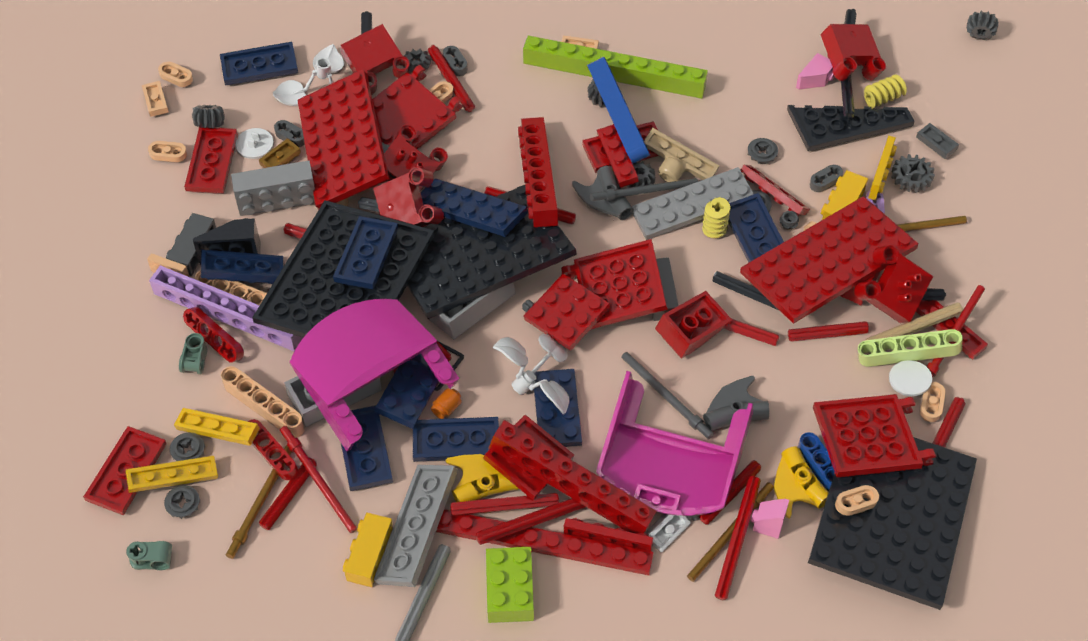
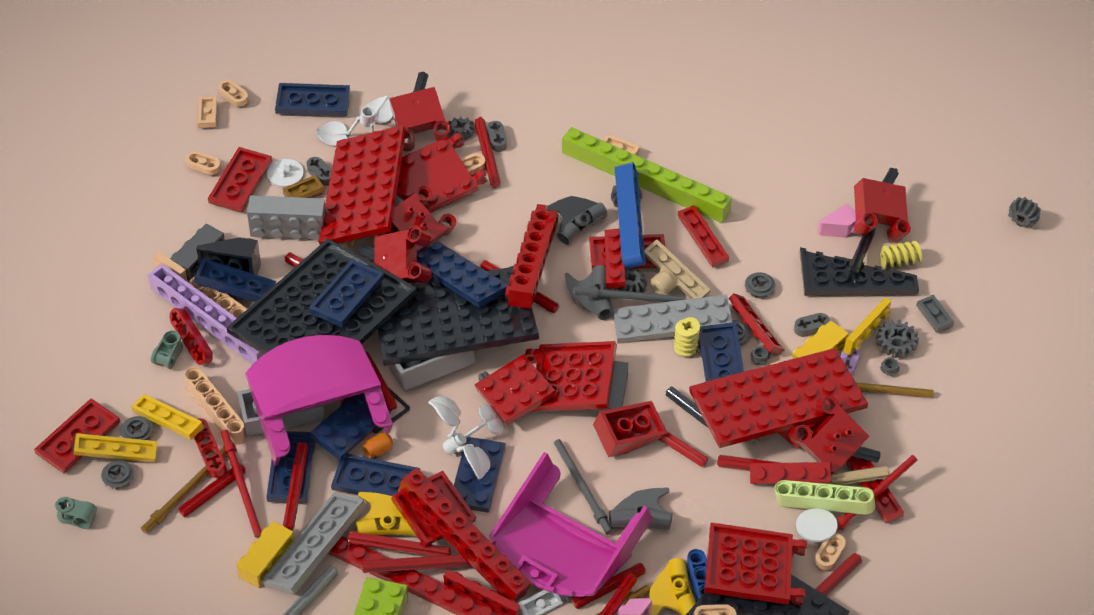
camera: 15 degrees right, 5 degrees down
(208, 116) = (249, 138): dark grey gear -> none
(377, 468) = (295, 486): none -> red axle
(564, 122) = (576, 216): none -> dark grey pin
(691, 115) = (703, 236): none -> red plate
(867, 330) = (803, 472): none -> red plate
(916, 202) = (890, 366): none -> dark grey plate

